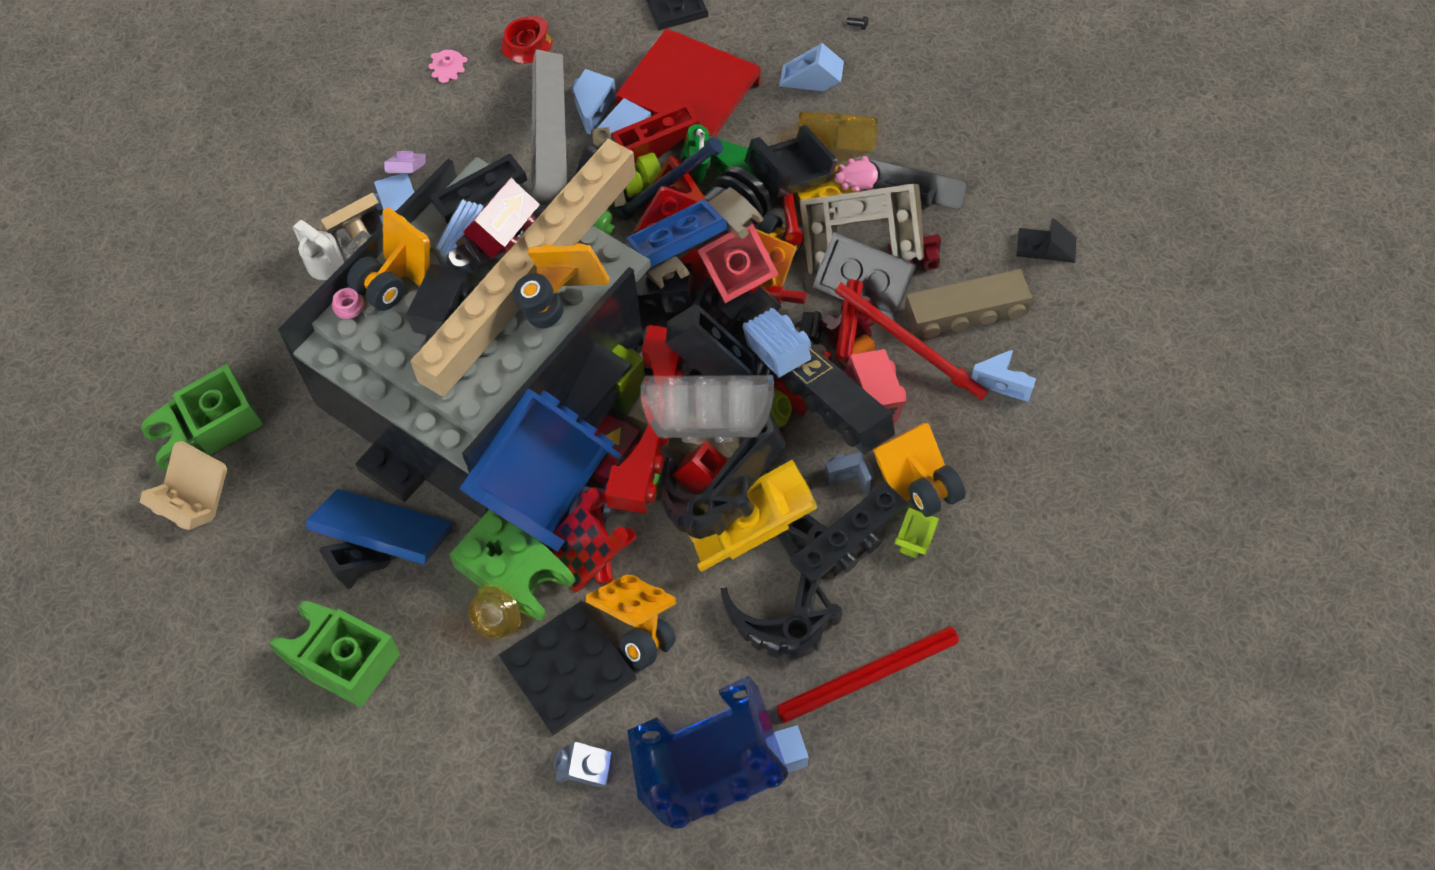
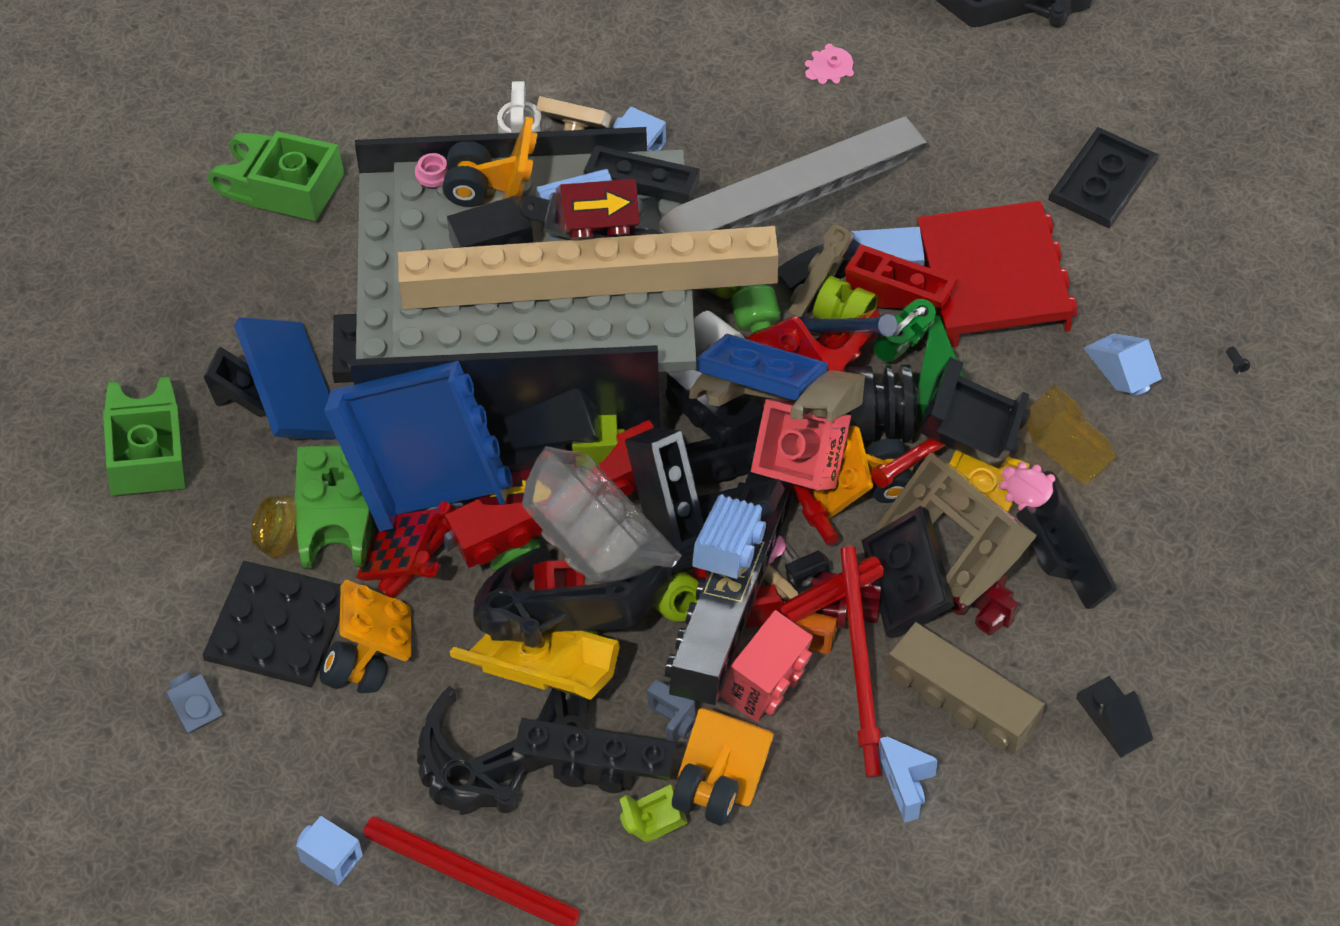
camera: 50 degrees right, 5 degrees down
(189, 489) = (199, 222): tan bracket -> none
(404, 162) = (677, 114): lavender plate -> none
(524, 37) = (922, 101): red hat -> none
(555, 268) = (554, 298): light orange plate -> none
(593, 97) = (900, 203): light blue slope -> none
(708, 762) = (260, 794): clear blue windscreen -> none

